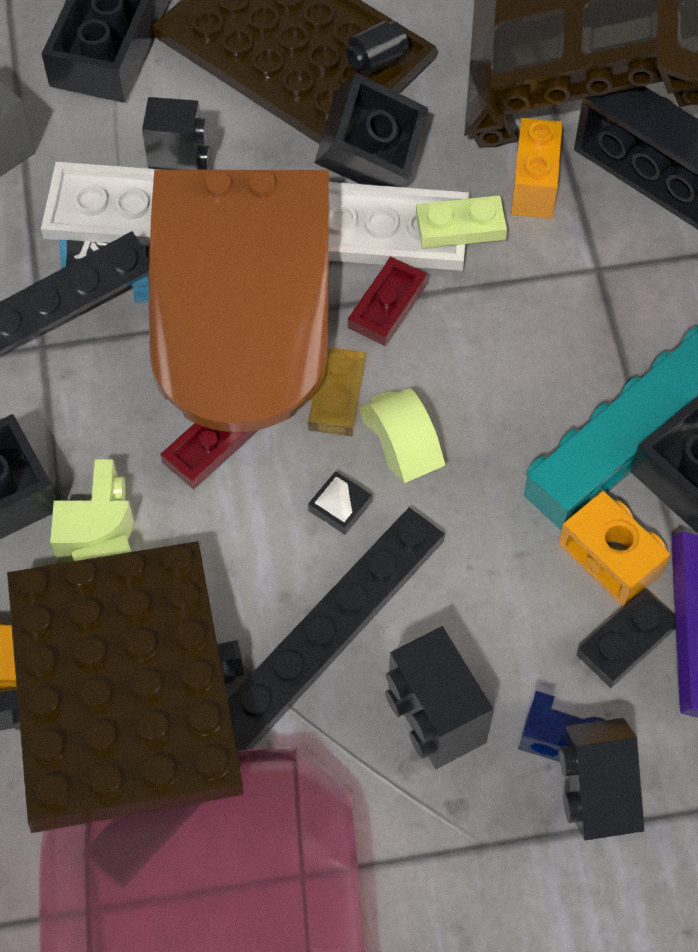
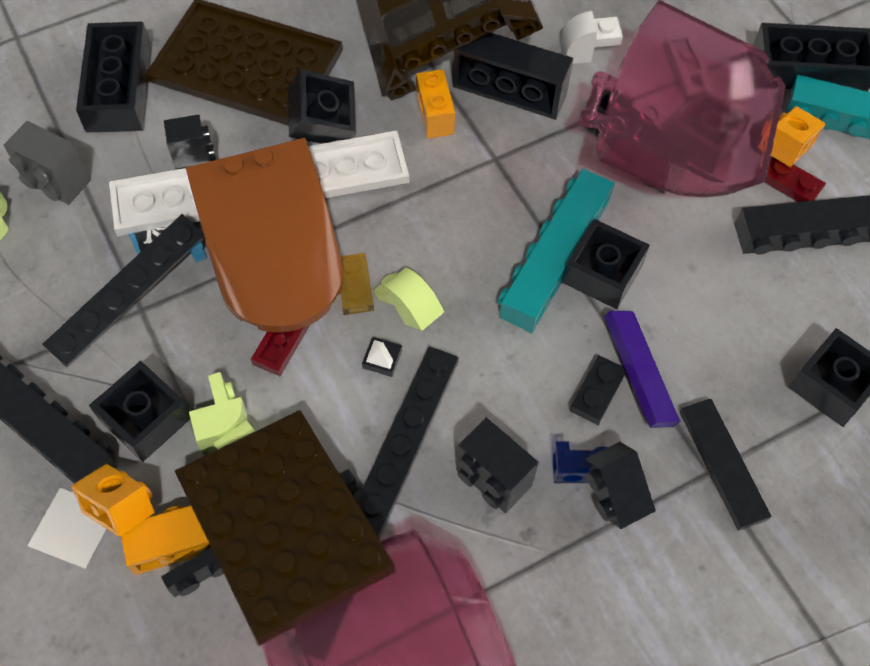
camera: 20 degrees left, 0 degrees up
(376, 47) = (304, 50): black brick -> none
(387, 301) = (367, 215): dark red plate -> none
(461, 221) = (399, 150): yellowish green plate -> none
(619, 572) = (577, 349): light orange brick -> none

